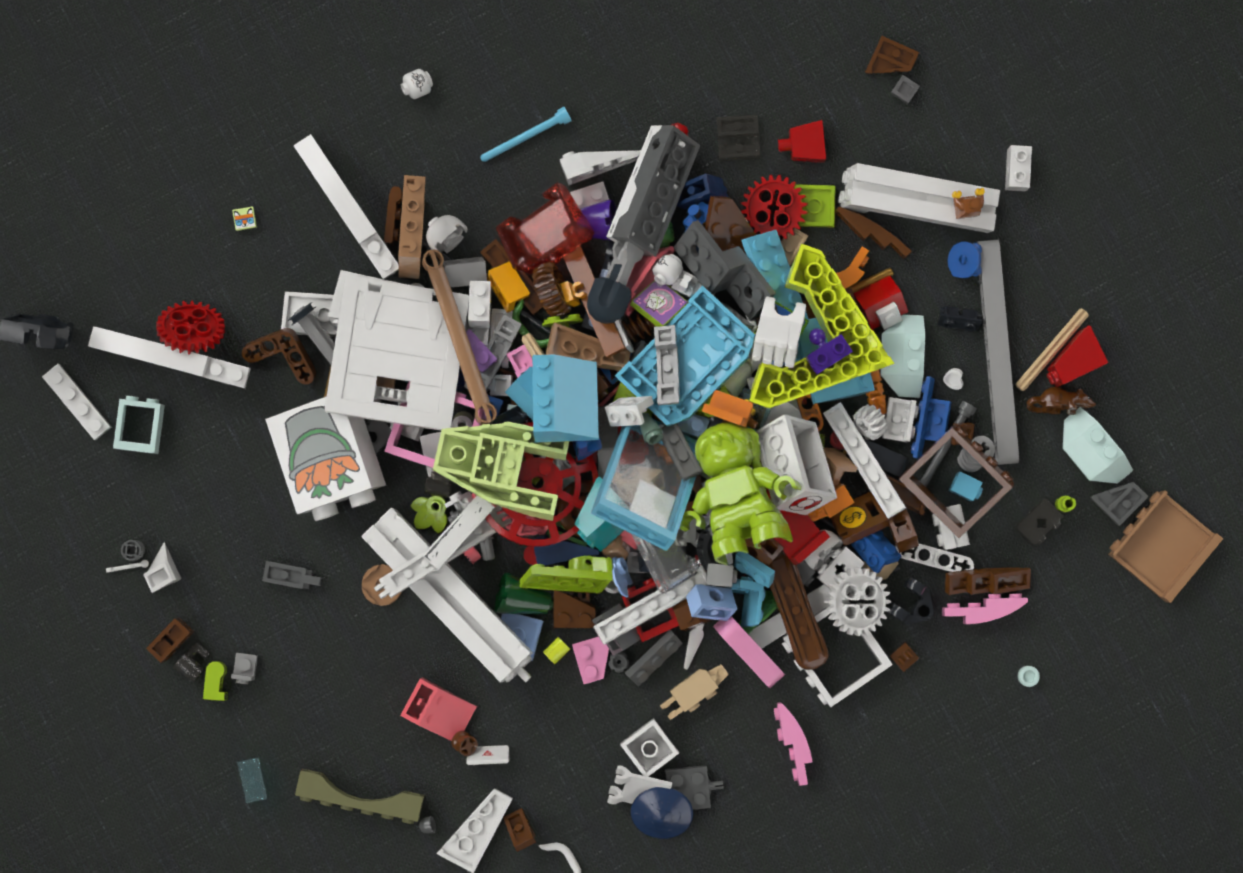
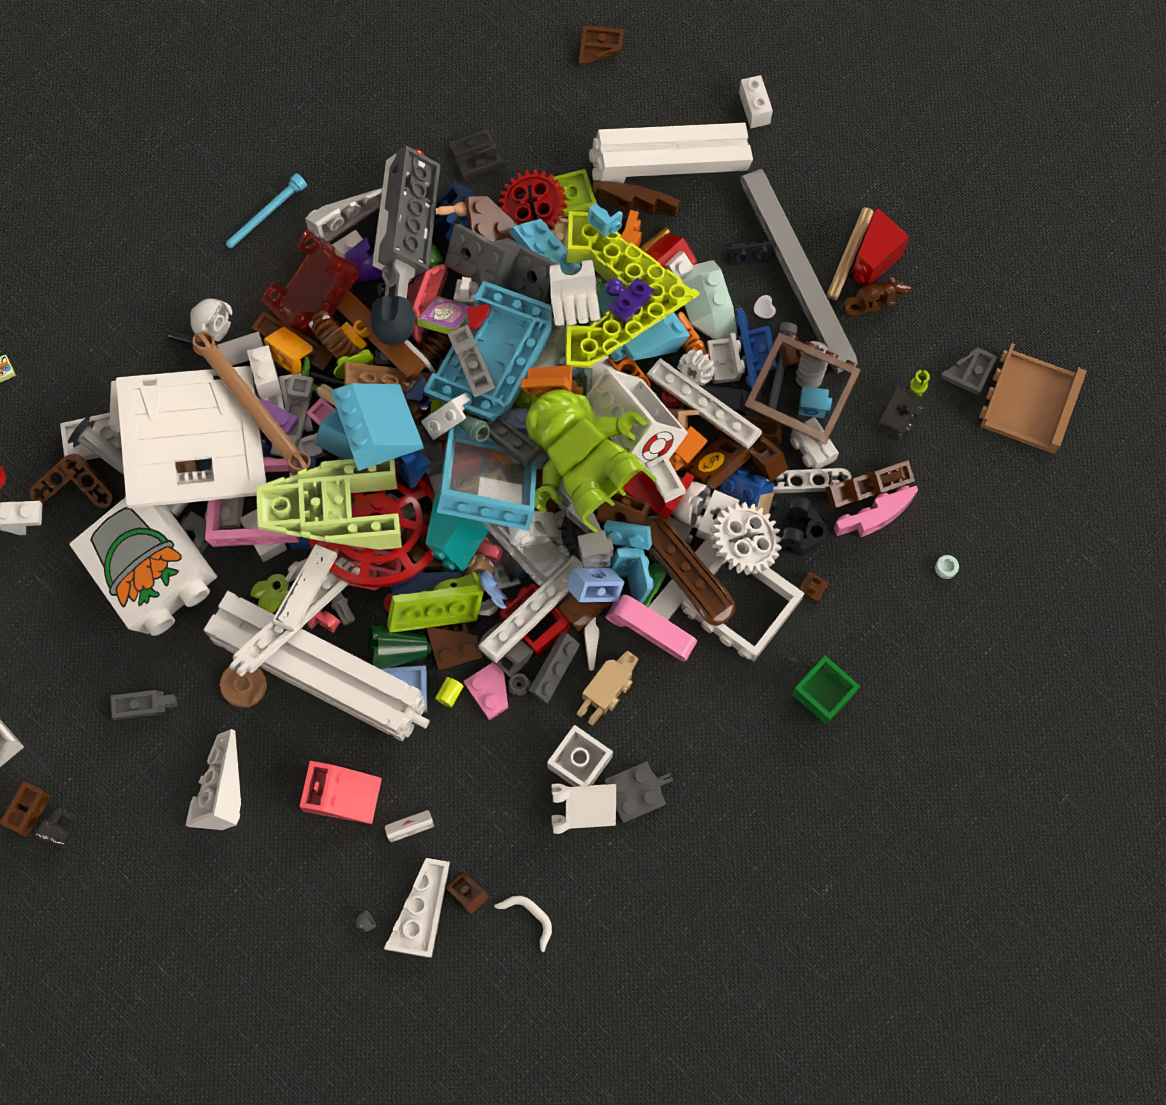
camera: 20 degrees left, 15 degrees down
(214, 681) = (86, 842): lime leg -> none
(244, 668) = (116, 816): light grey bracket -> none
(251, 780) = (155, 933): clear light blue hinge -> none
(318, 787) = (331, 907): olive arch -> none
(336, 675) = (219, 795): none -> white wedge
(347, 207) = (122, 334): white slope -> none
(393, 215) = (152, 320): reddish brown hinge -> none
(411, 227) = (171, 313): medium nougat window -> none
(416, 83) = (142, 194): white head -> none
(438, 485) = (274, 563): clear smoke piece -> none
(464, 743) = (385, 820): reddish brown wheel -> none
(608, 371) = (415, 389): none -> dark blue slope
(662, 813) = (615, 824): dark blue hat -> none
(667, 269) = (444, 282): white head -> none
(686, 318) = (477, 315): none -> red tile
(702, 202) = (459, 208): none -> light nougat piece
(791, 733) = (727, 699): bright pink slope -> none
(803, 532) = (667, 480): none -> white tile
(805, 143) = (543, 139): red torso -> none
(827, 265) = (602, 221): none -> medium azure bracket
(880, 756) = (825, 690): none -> green piece
(905, 89) = (622, 66): flat silver plate -> none
(965, 260) = (735, 195): blue piece -> none
(968, 206) = (719, 139): dark orange piece -> none
(1093, 449) = (928, 329): light aqua wedge -> none

